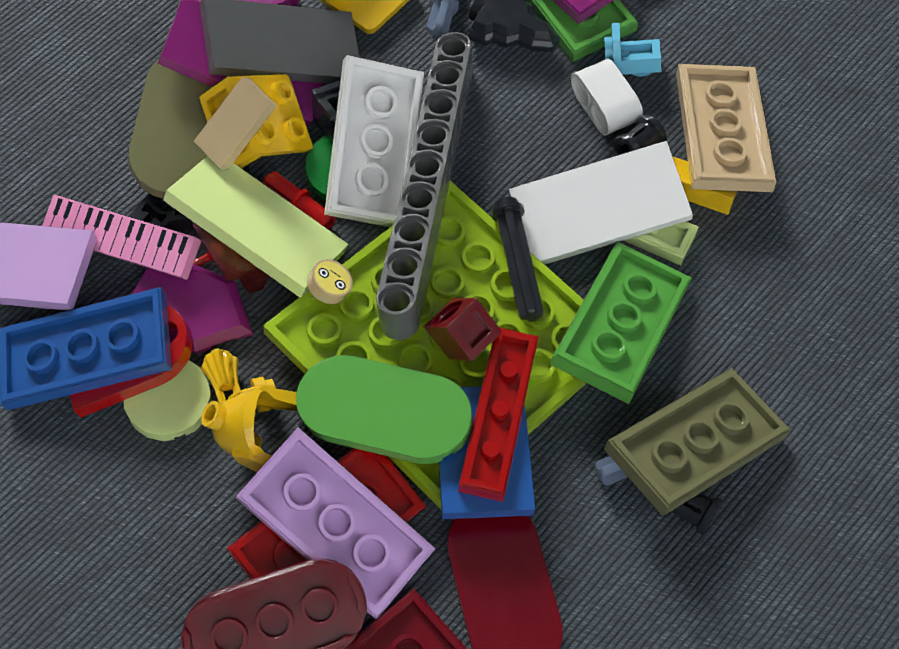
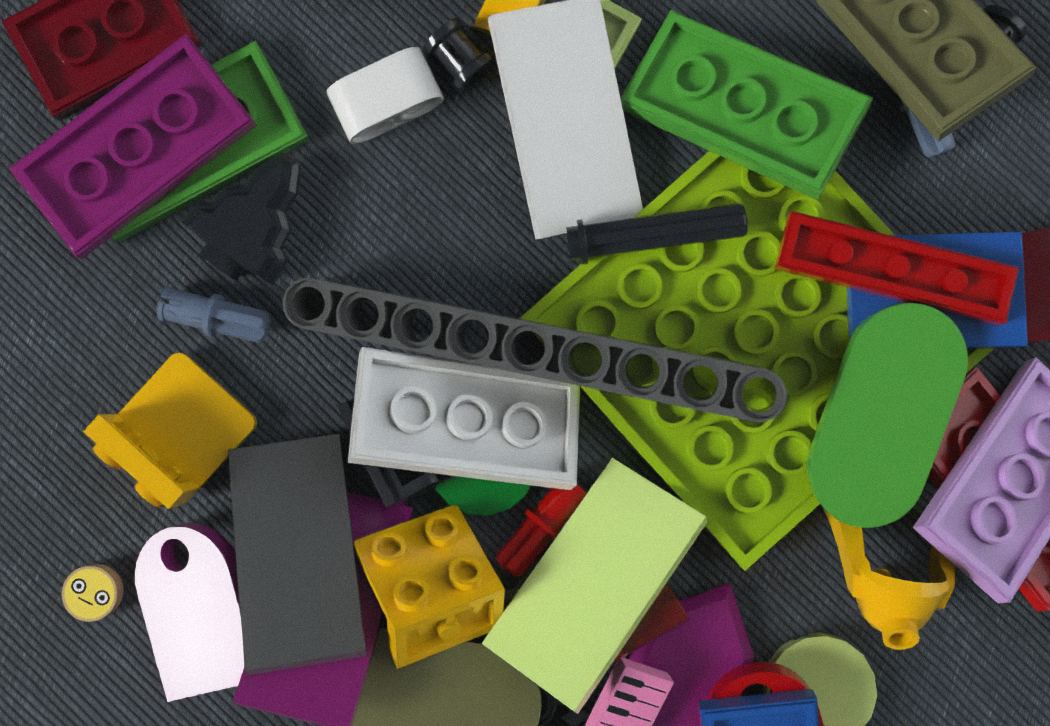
camera: 85 degrees left, 25 degrees up
(222, 372) = (791, 621): yellow piece -> none
(235, 123) = (466, 617): tan tile -> none
(329, 281) = (694, 483): tile -> none
(462, 329) = (785, 309): dark red brick -> none
(633, 57) = (316, 50): medium azure bracket -> none

